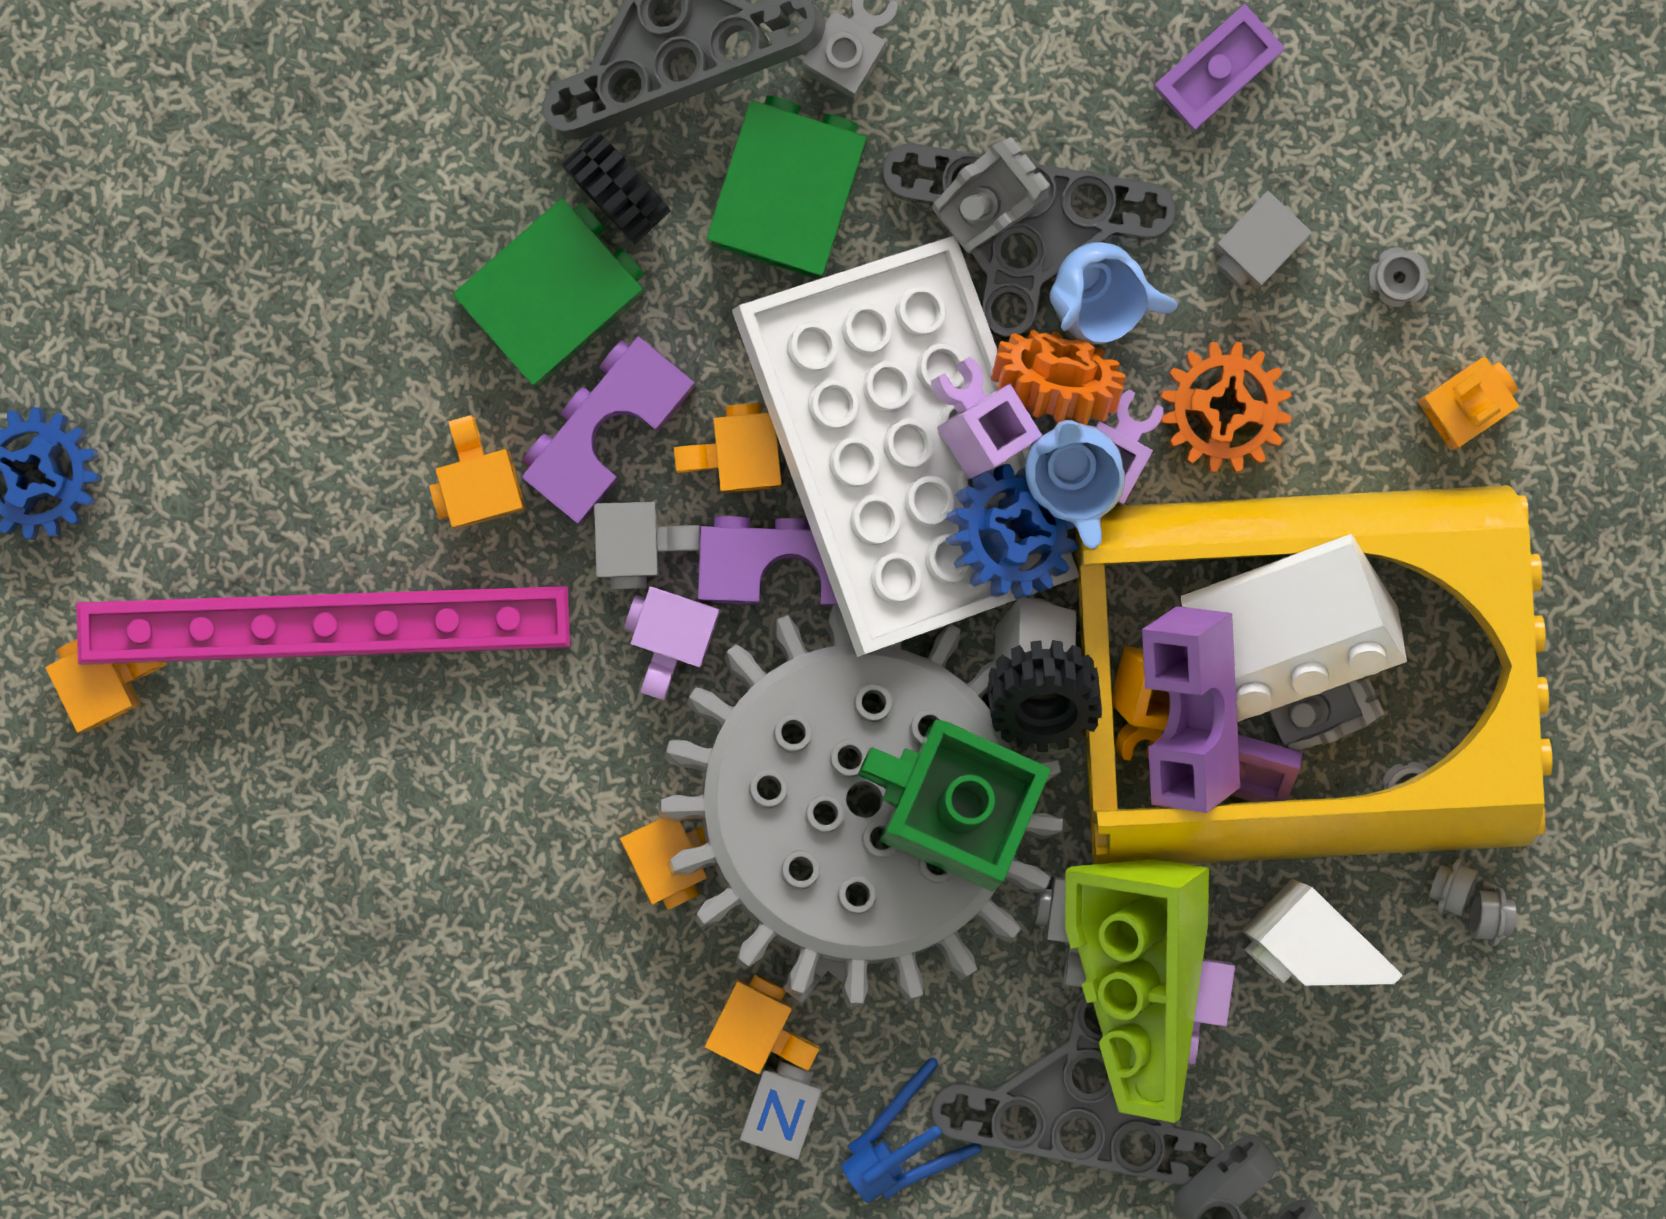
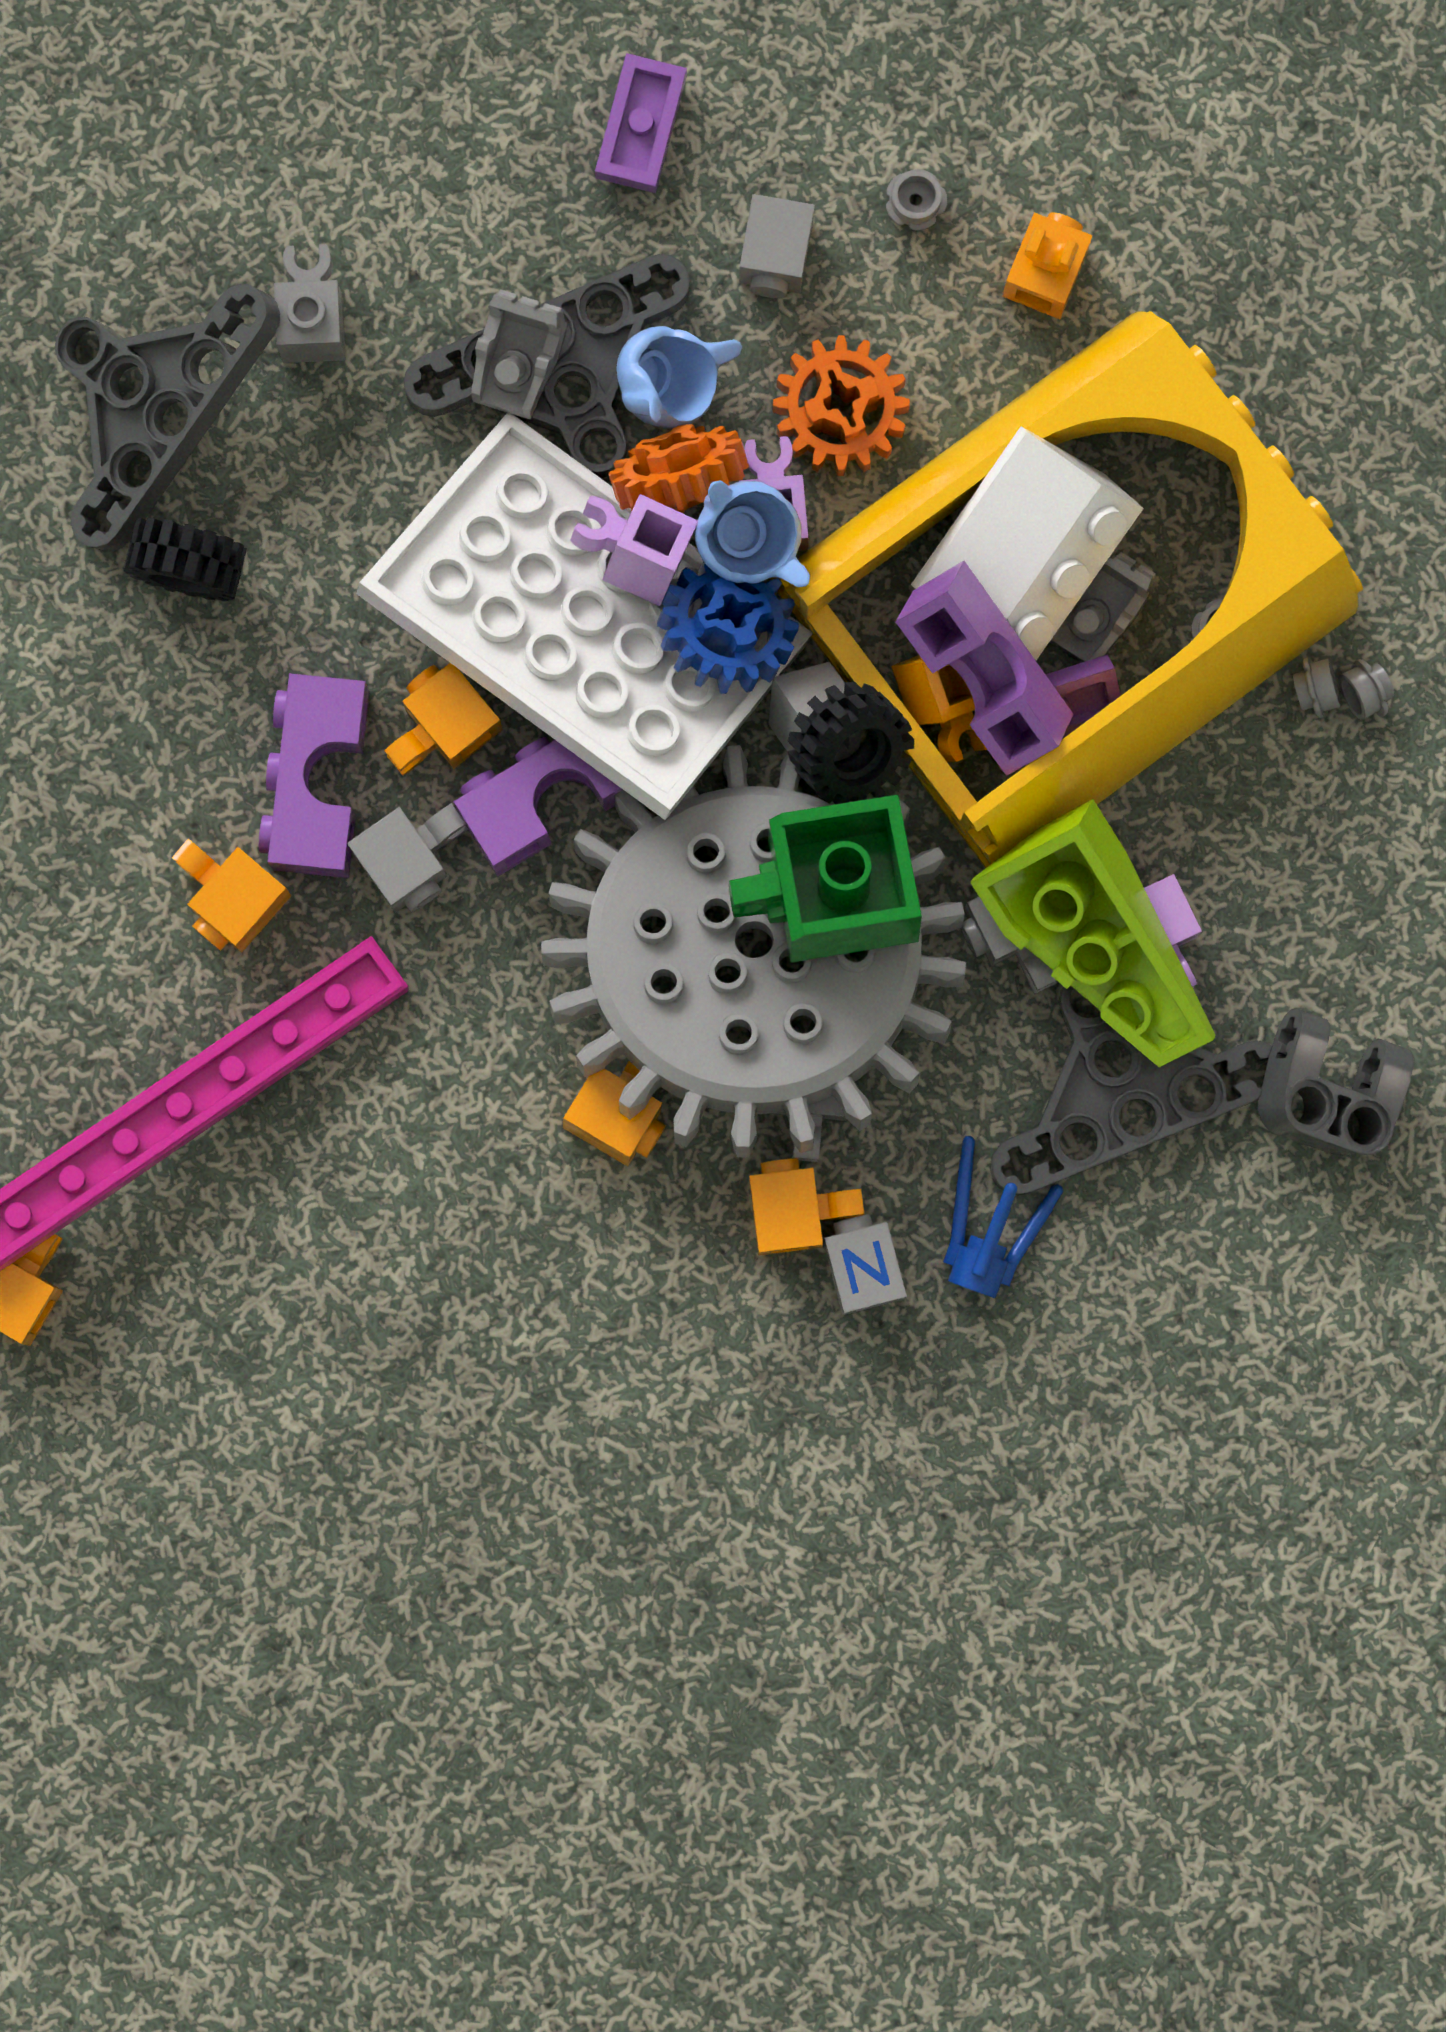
camera: 35 degrees left, 5 degrees down
(551, 291) = (188, 689): green brick -> none
(671, 629) = (490, 912): lavender brick -> none
(787, 187) = (334, 465): green brick -> none
(1313, 943) = (1227, 800): white slope -> none

